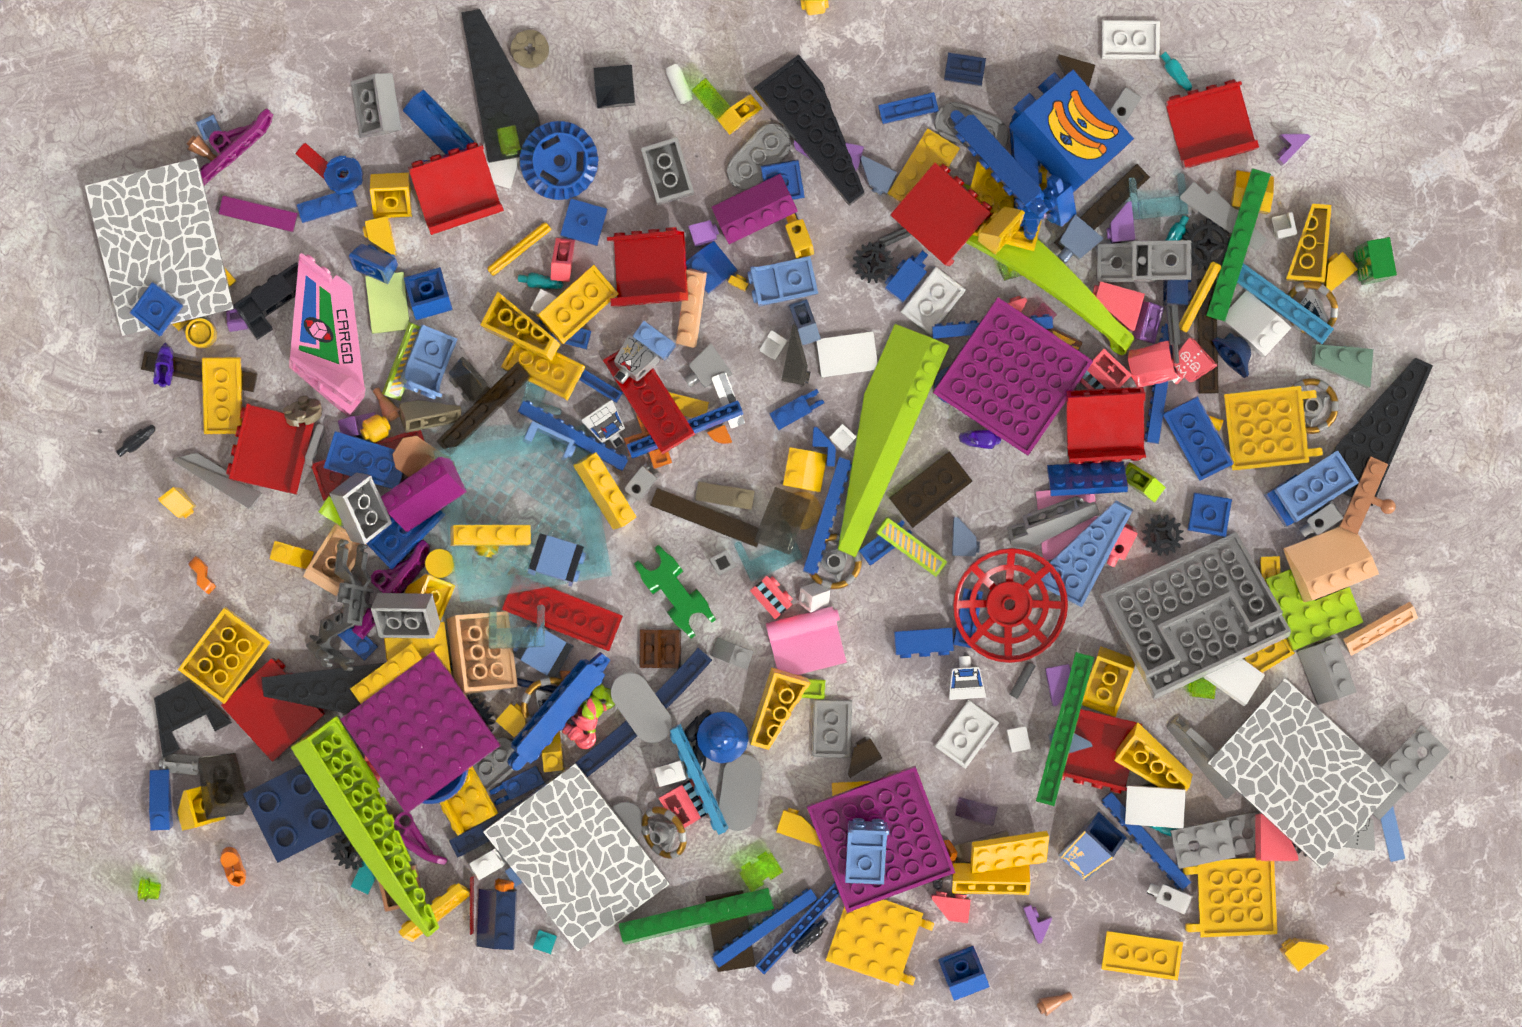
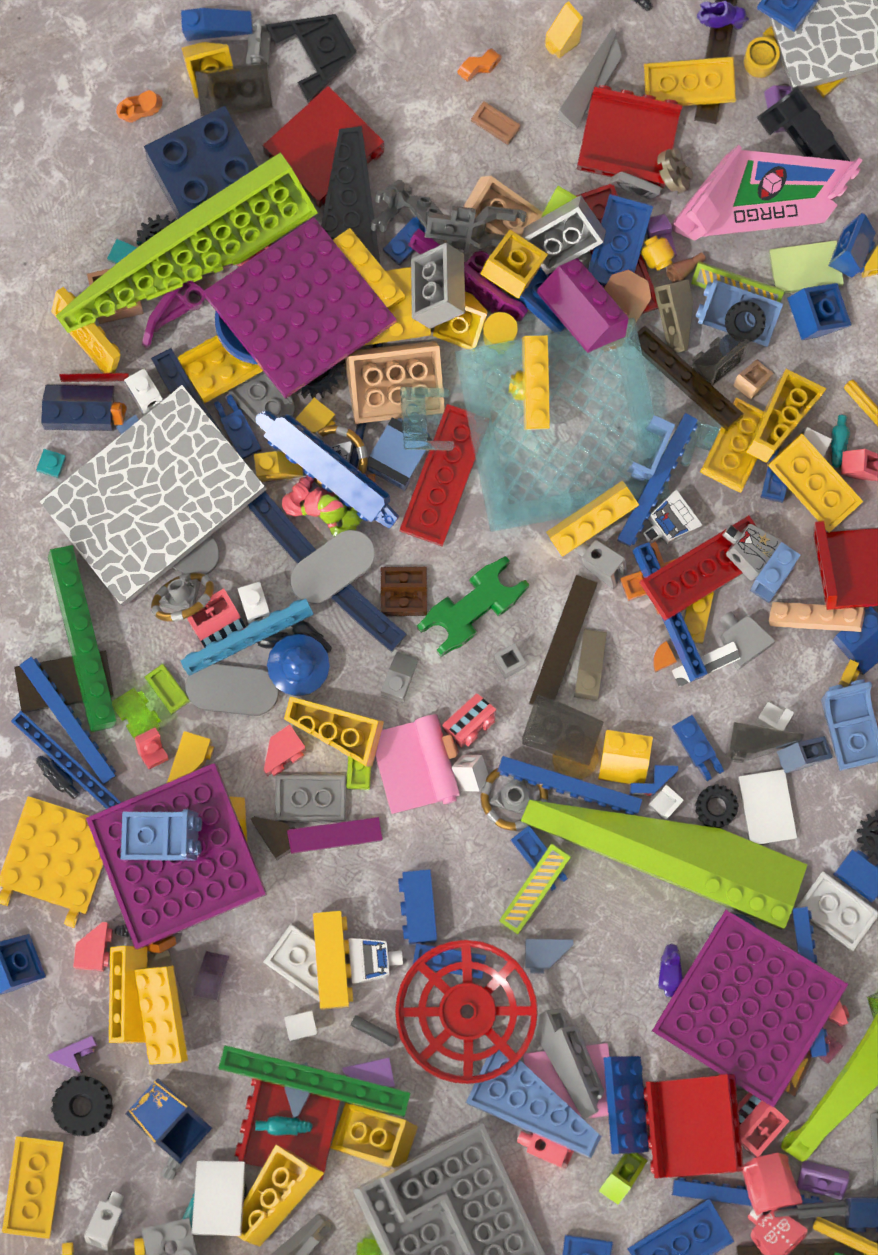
camera: 90 degrees right, 10 degrees down
(148, 889) = (112, 12): clear neon green piece -> none
(224, 655) = (387, 88): yellow slope -> none
(253, 562) = (495, 123): none -> nougat tile
(291, 555) = (506, 160): yellow slope -> none
(386, 550) = (513, 264): none -> yellow slope
(449, 357) = (745, 306): none -> black tyre
(484, 351) = (752, 379): none -> light nougat slope
(557, 558) = (509, 462): medium blue panel -> none
(600, 386) = (718, 513): blue piece -> none
(738, 845) = (167, 689): none -> lime tile
(768, 562) = (511, 716): clear light blue plate -> none
(789, 859) = (150, 748): none -> coral bracket
(790, 750) = (282, 749): none -> coral slope
(793, 613) = (451, 747): none -> nougat tile
(857, 396) = (716, 792): none -> black tyre
(864, 709) = (334, 835): none -> magenta tile
(930, 489) = (605, 913): dark brown tile -> none
(966, 713) = (330, 960): none -> yellow brick
(1078, 901) = (100, 1106): none -> black tyre
(1097, 755) = (284, 1126): none -> teal piece
(1121, 303) = (845, 1143): coral slope -> none
(1147, 842) = (172, 1193): blue piece -> none
(1157, 542) = (548, 1196): black gear -> none

